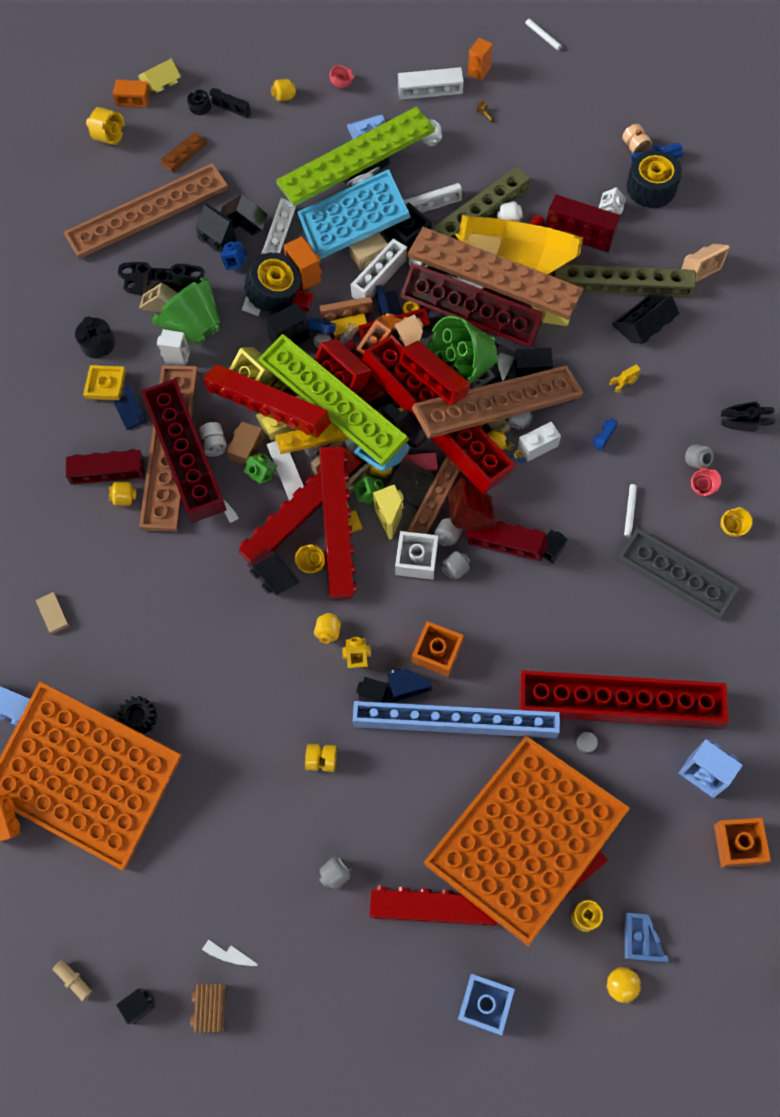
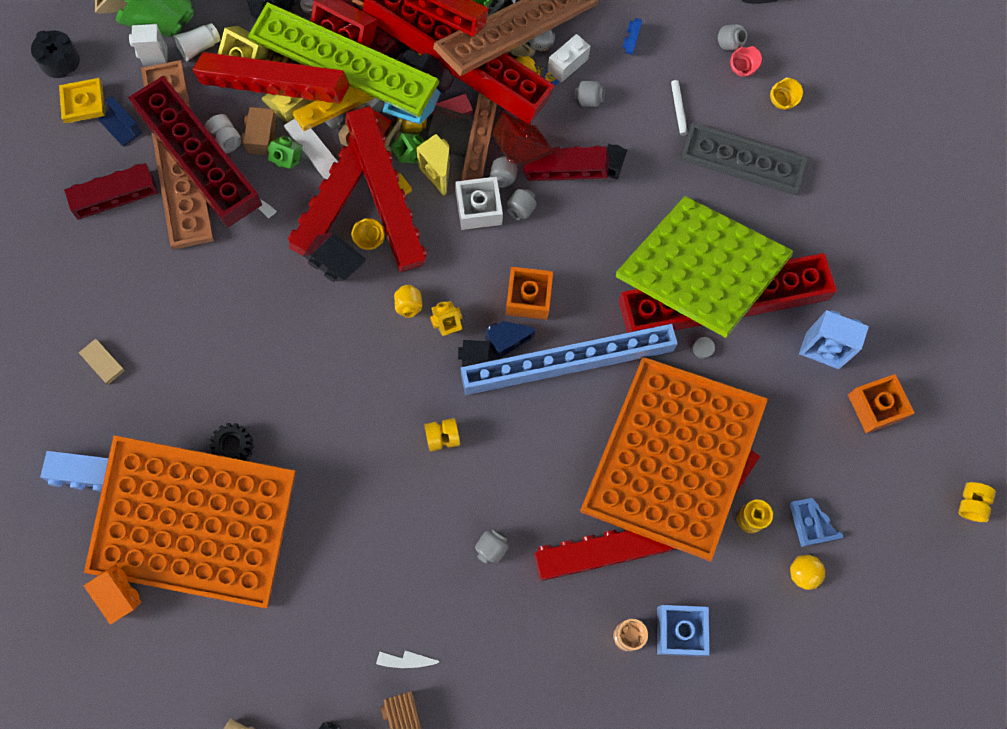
camera: 25 degrees left, 5 degrees up
(122, 493) = (140, 215): yellow head -> none
(215, 352) = (196, 40): none -> white plant
(436, 993) = (630, 635): none -> light nougat wheel
(549, 478) = (590, 93): none -> light grey head
(607, 666) = (704, 265): none -> lime plate

